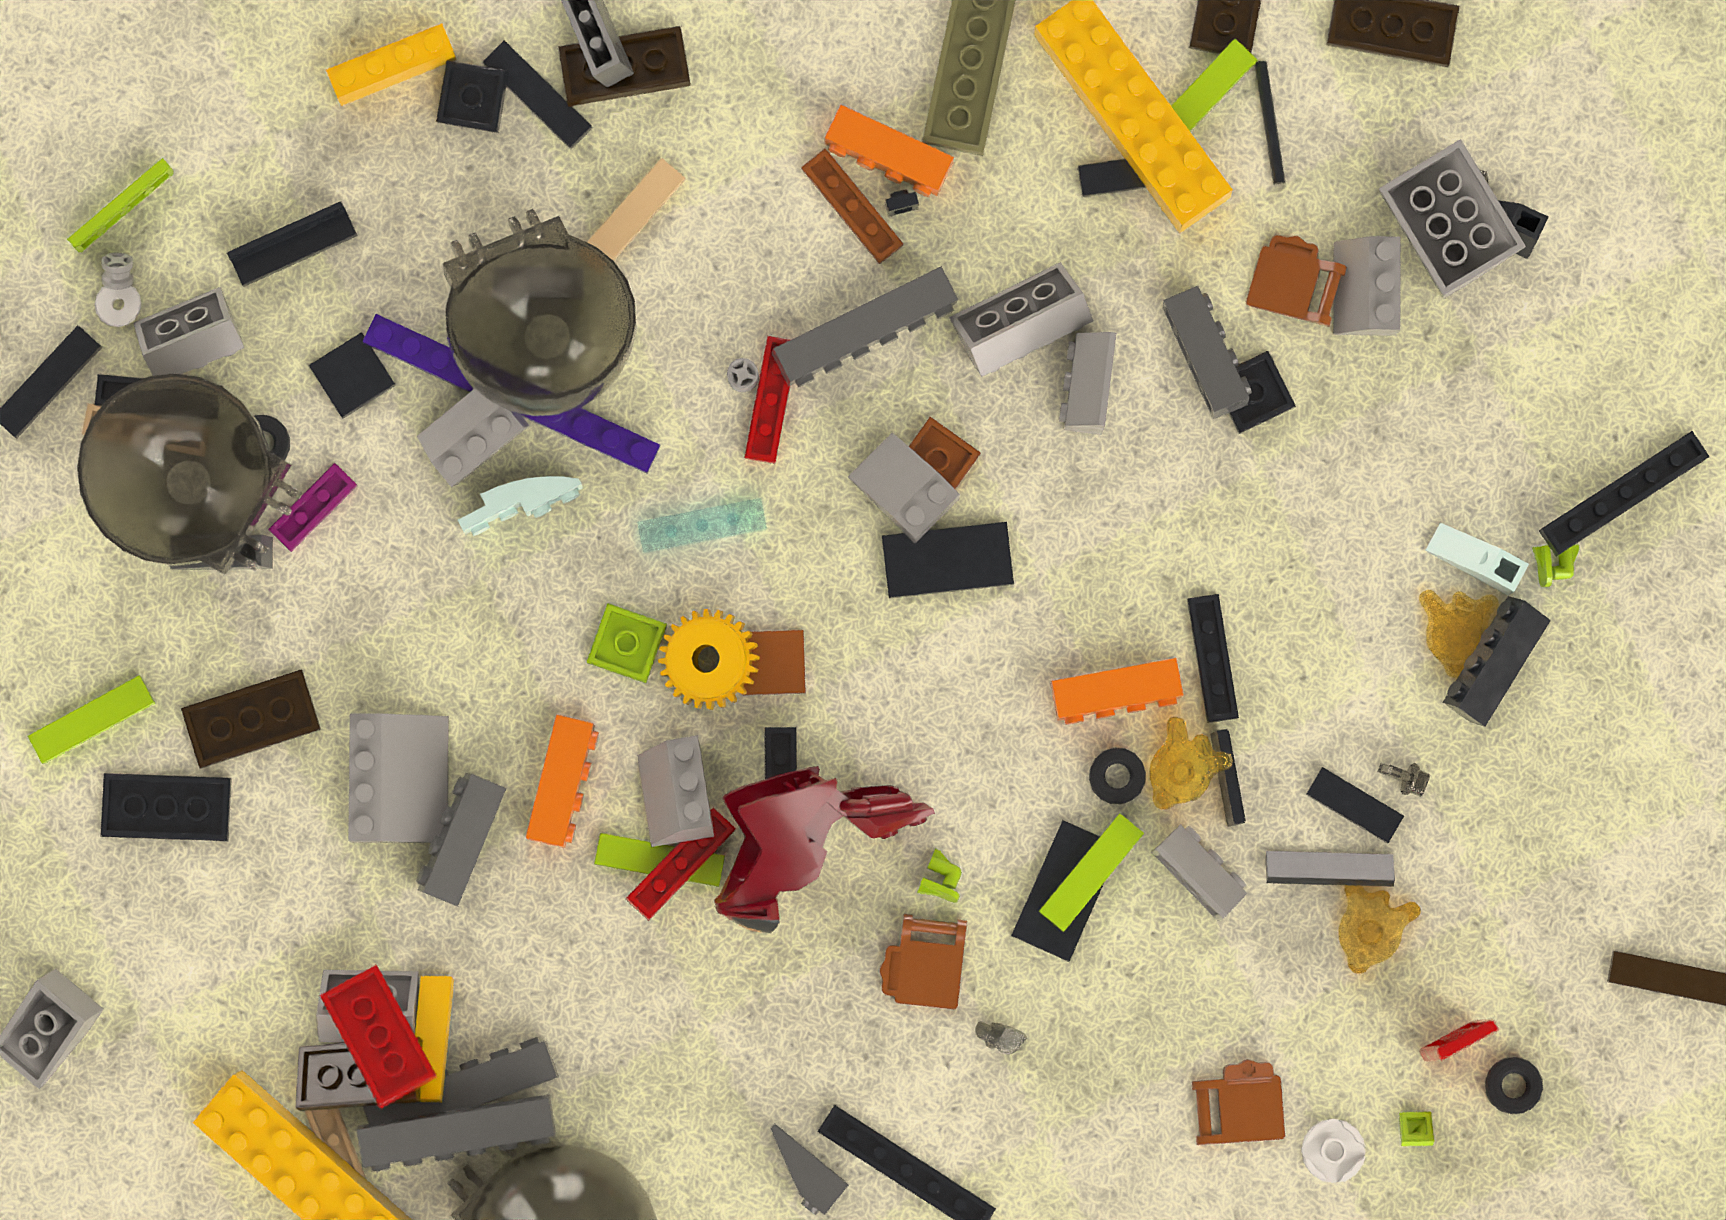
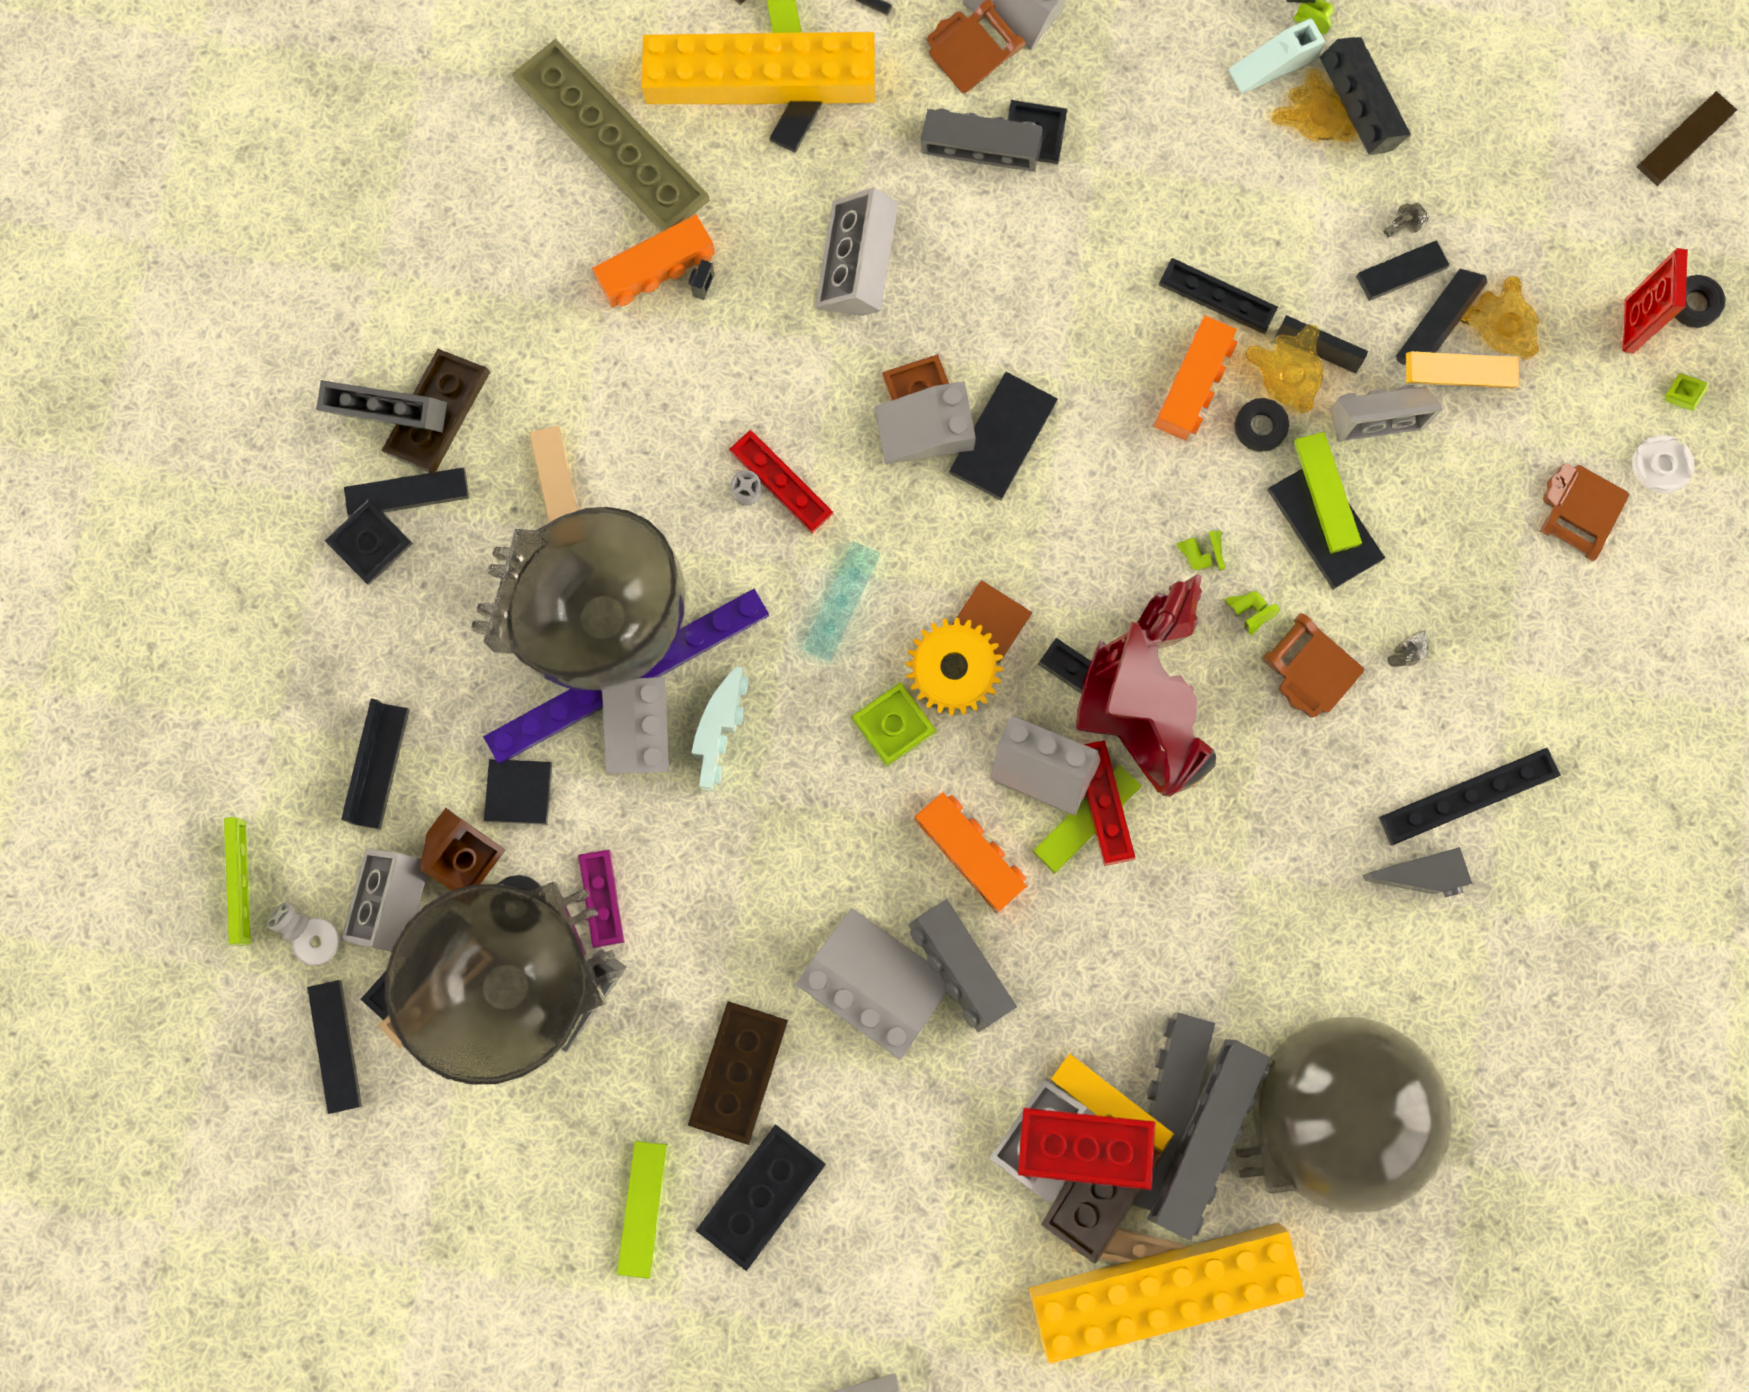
camera: 55 degrees left, 5 degrees down
(267, 365) = (458, 852): none -> reddish brown slope
(391, 64) = (293, 585): yellow brick -> none
(852, 206) = (675, 319): dark orange tile -> none
(865, 326) = (777, 370): dark grey brick -> none
(951, 803) = (1191, 550): none -> lime piece
(1088, 382) = (944, 234): light grey slope -> none
(1289, 916) = (1462, 370): none -> yellow tile

